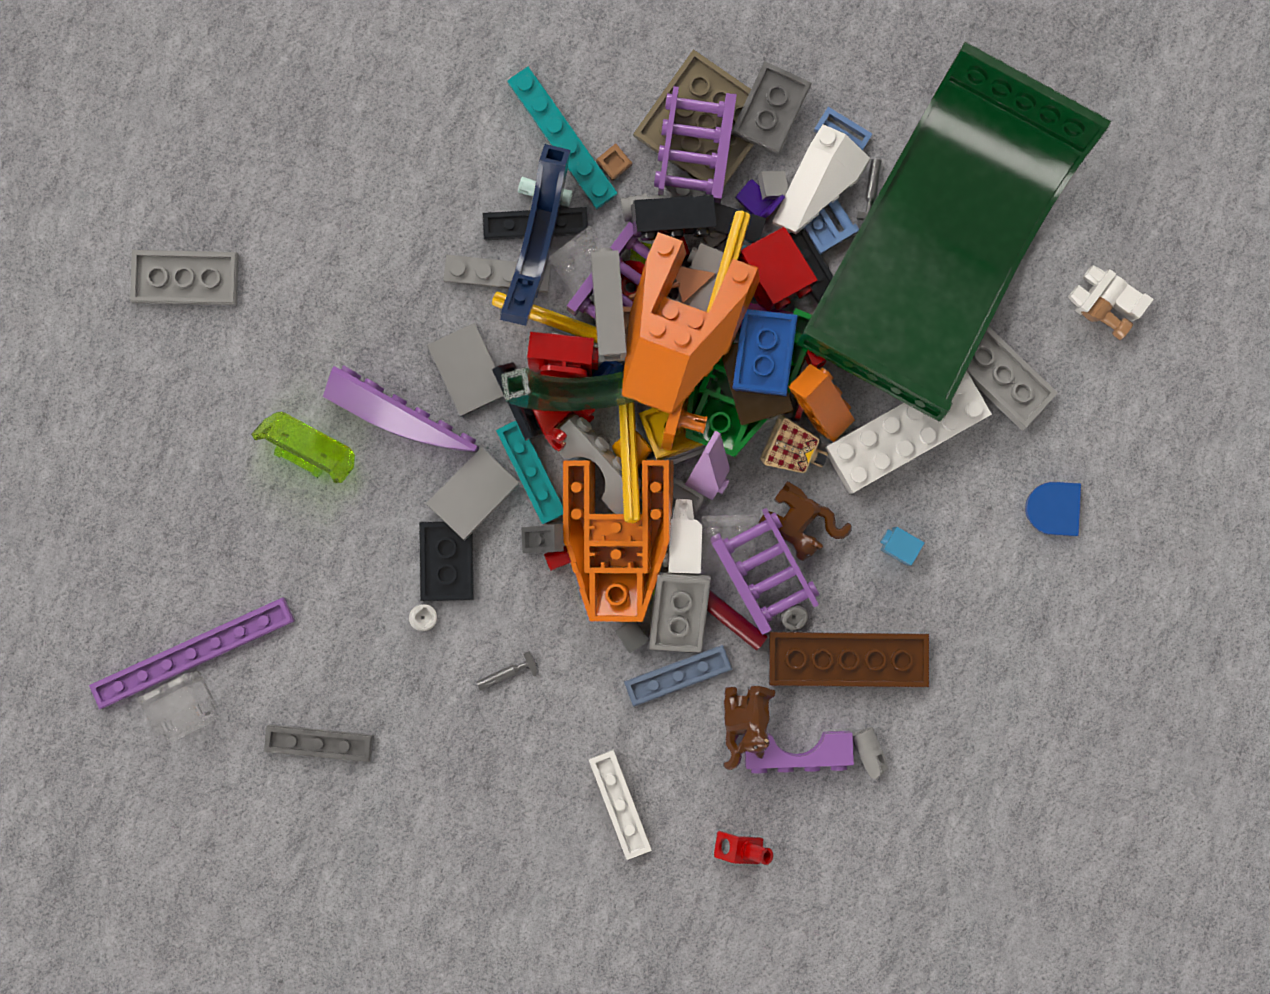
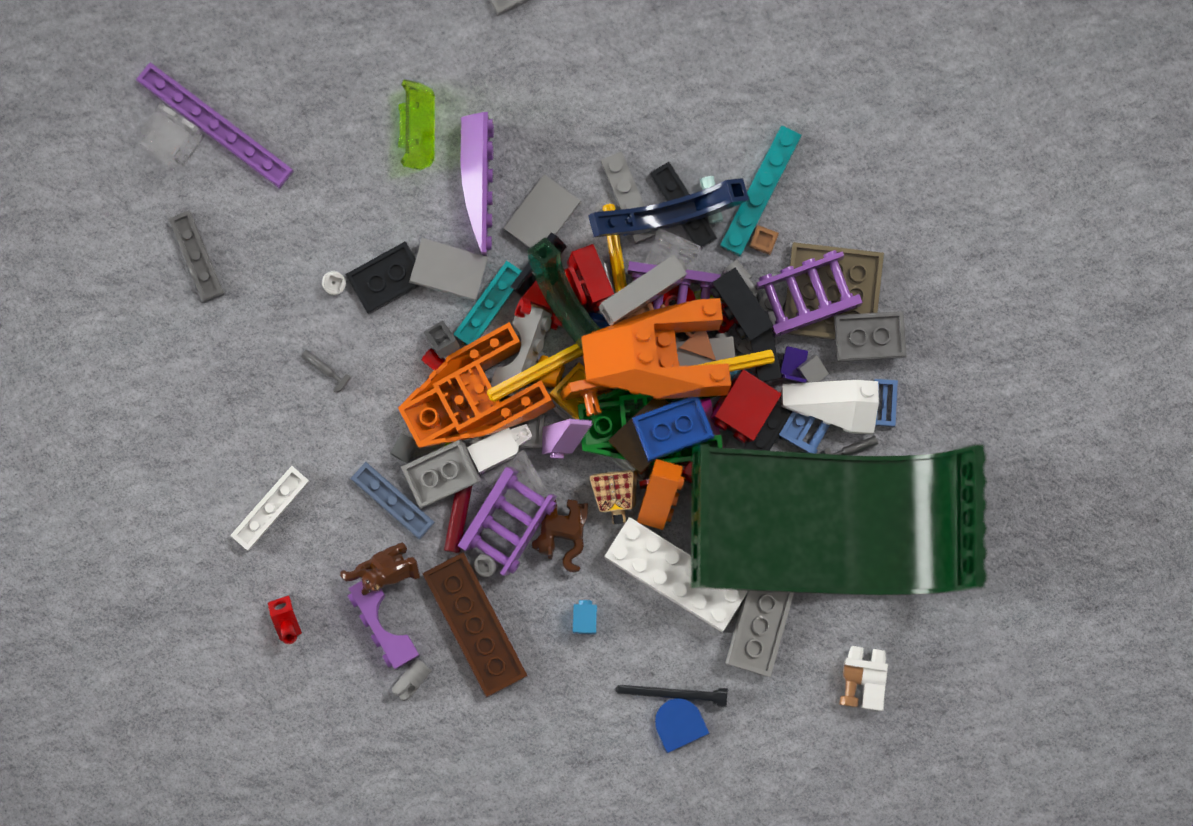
camera: 65 degrees right, 5 degrees down
(1049, 455) = (717, 696): none -> black piece

